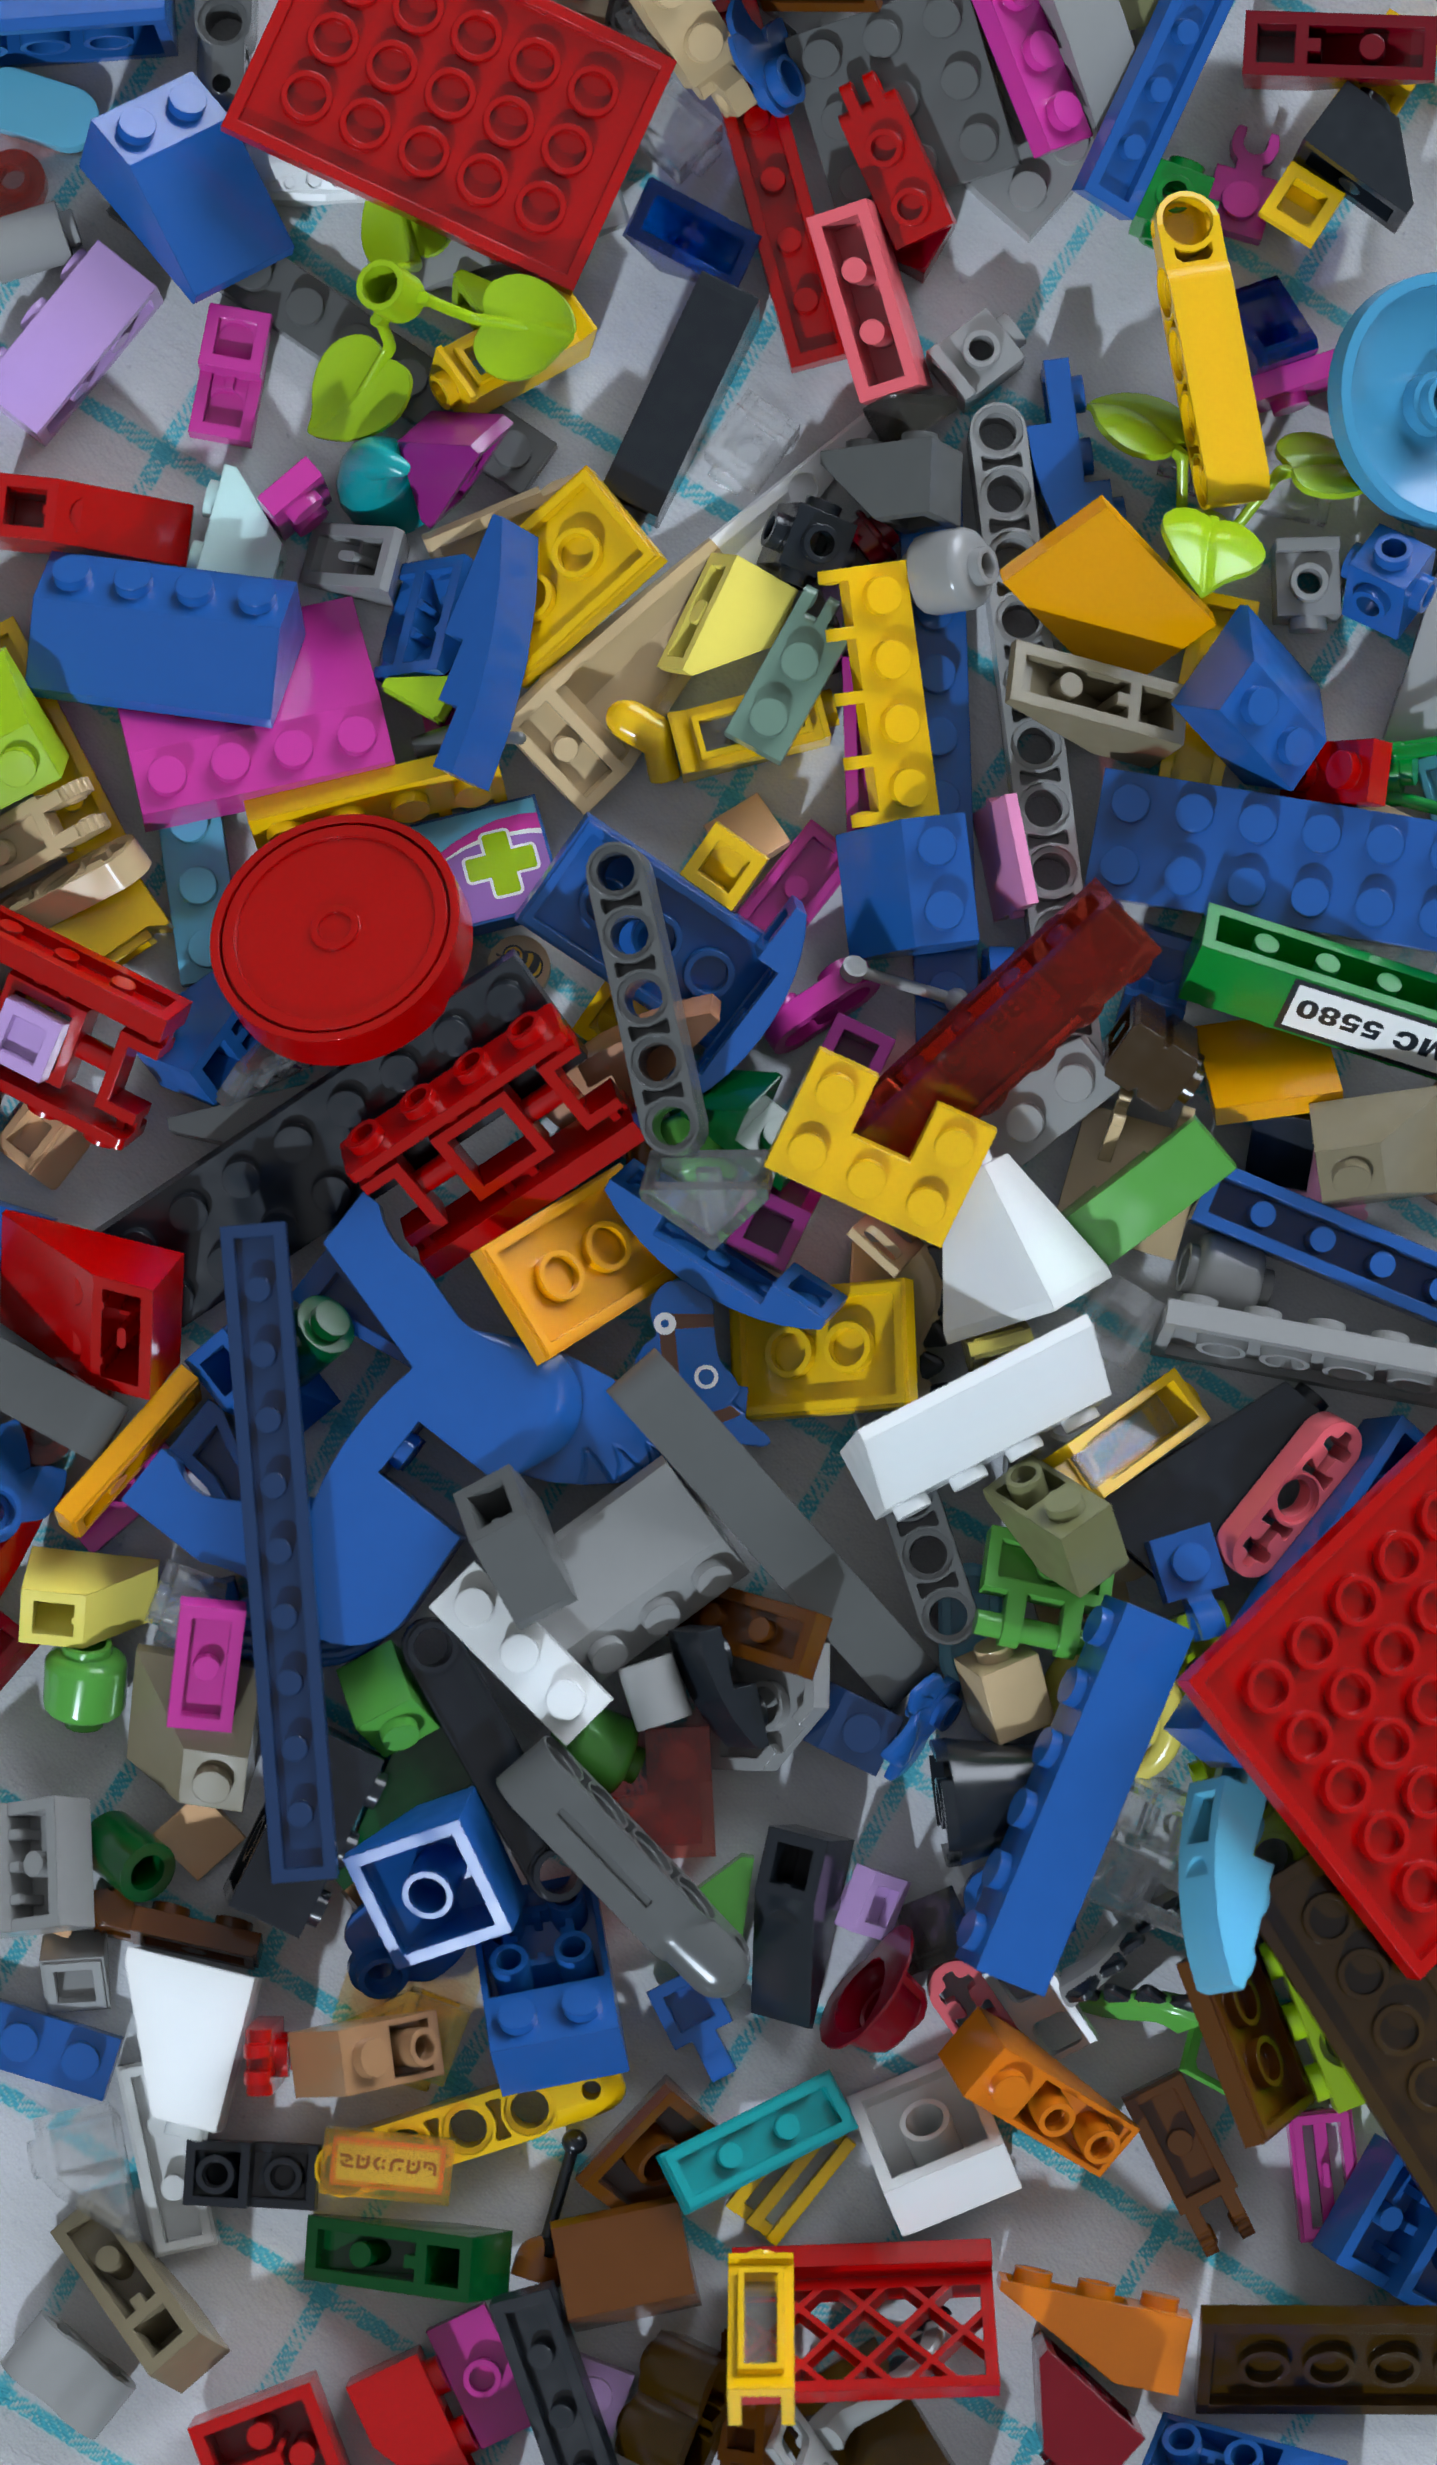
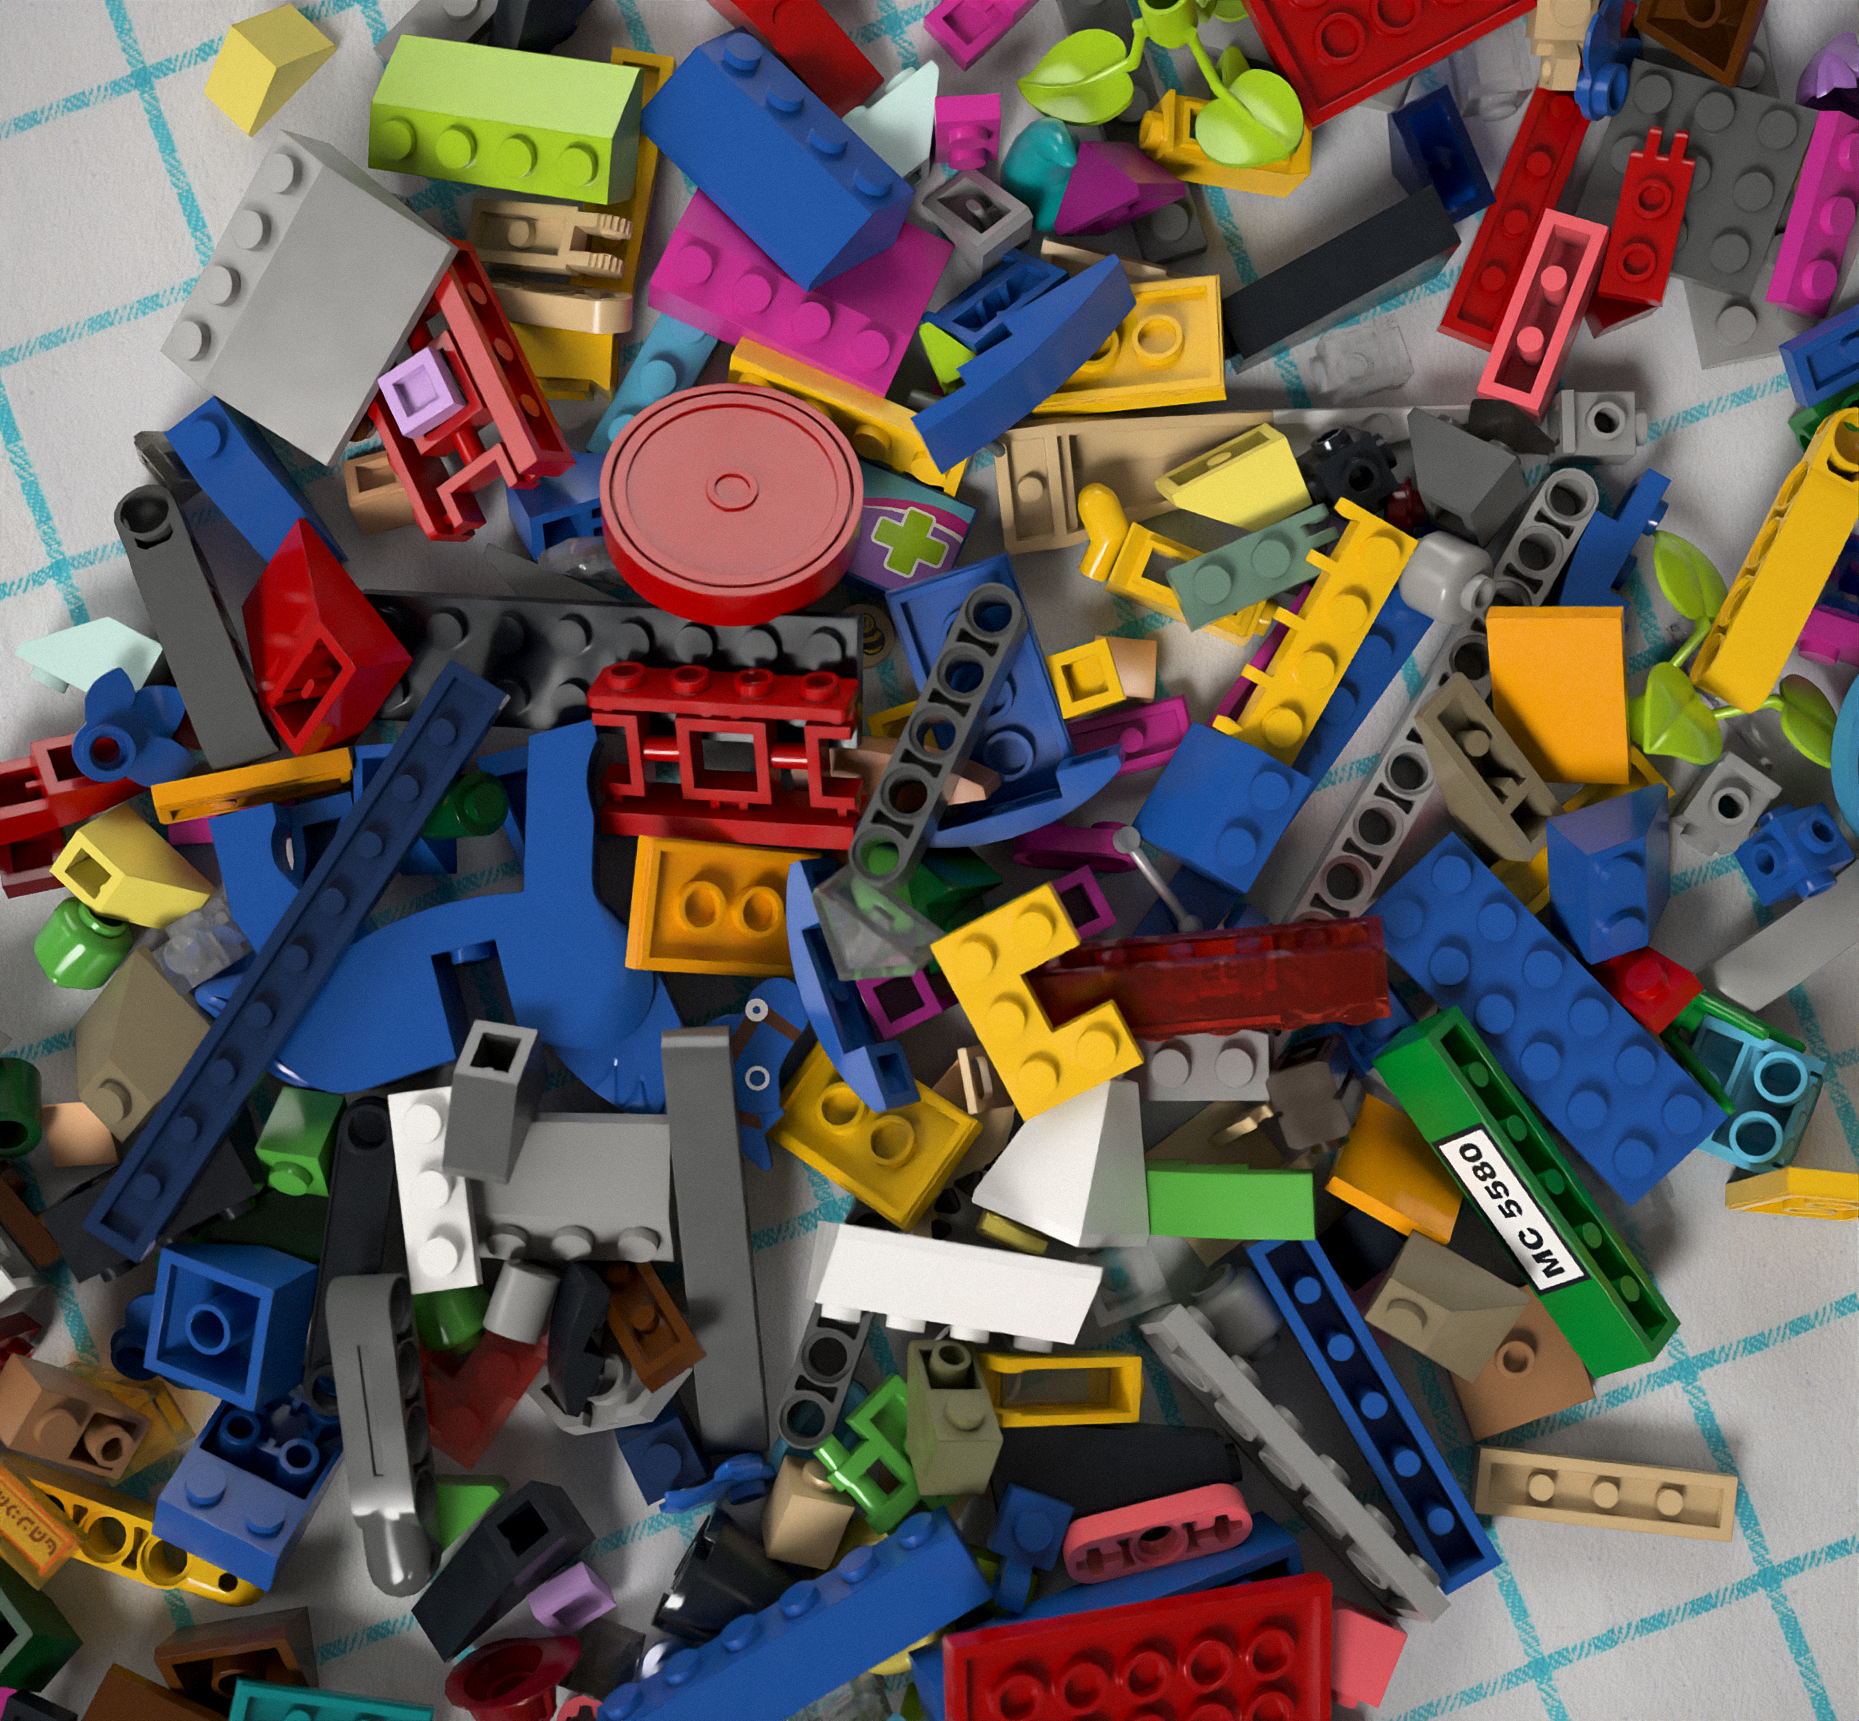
camera: 30 degrees right, 0 degrees up
(206, 1664) = (173, 1004): dark pink plate -> none
(537, 2256) = (83, 1677): hinge -> none
(694, 2018) = (352, 1585): blue plate -> none
(1005, 857) = (1316, 842): bright pink piece -> none

